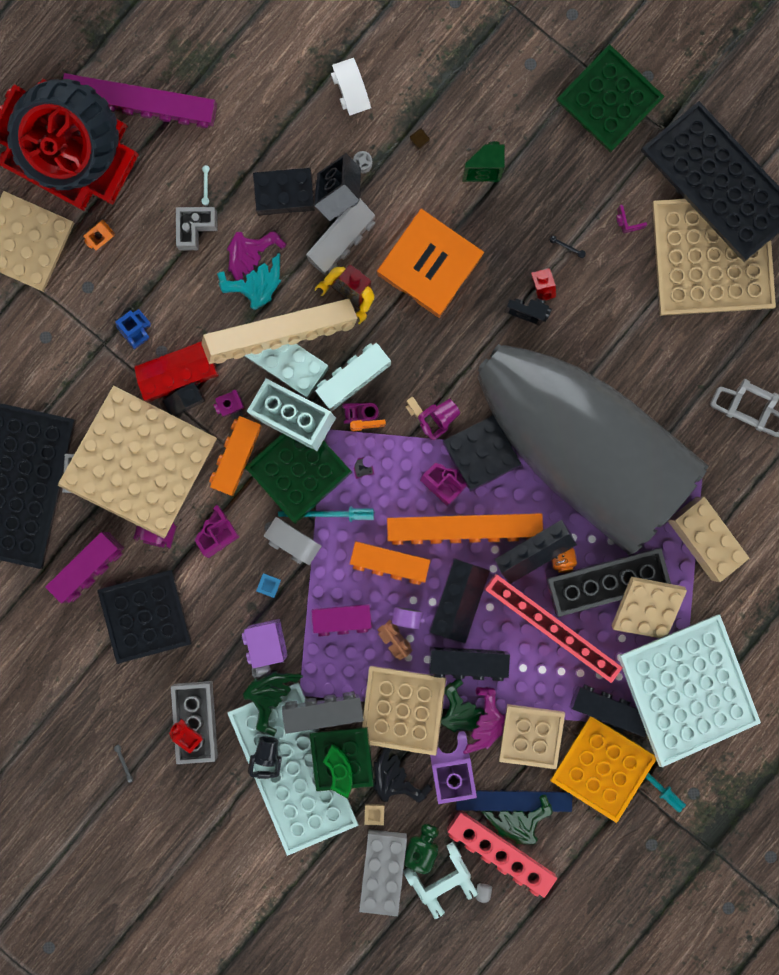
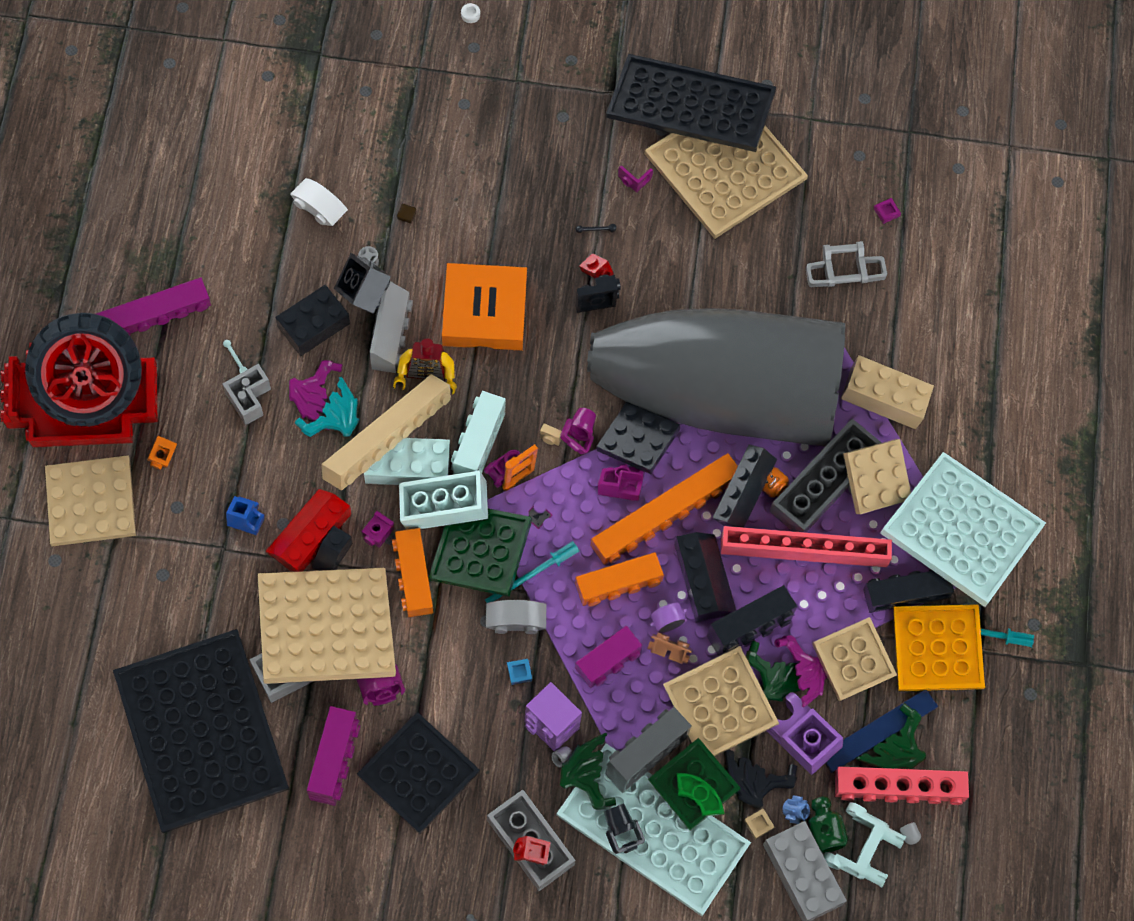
camera: 40 degrees left, 20 degrees down
(216, 533) = (439, 655): magenta slope -> none
(408, 822) = (796, 809): none -> medium blue gear
(486, 164) = (482, 195): dark green slope -> none
(610, 98) = (551, 92): dark green plate -> none

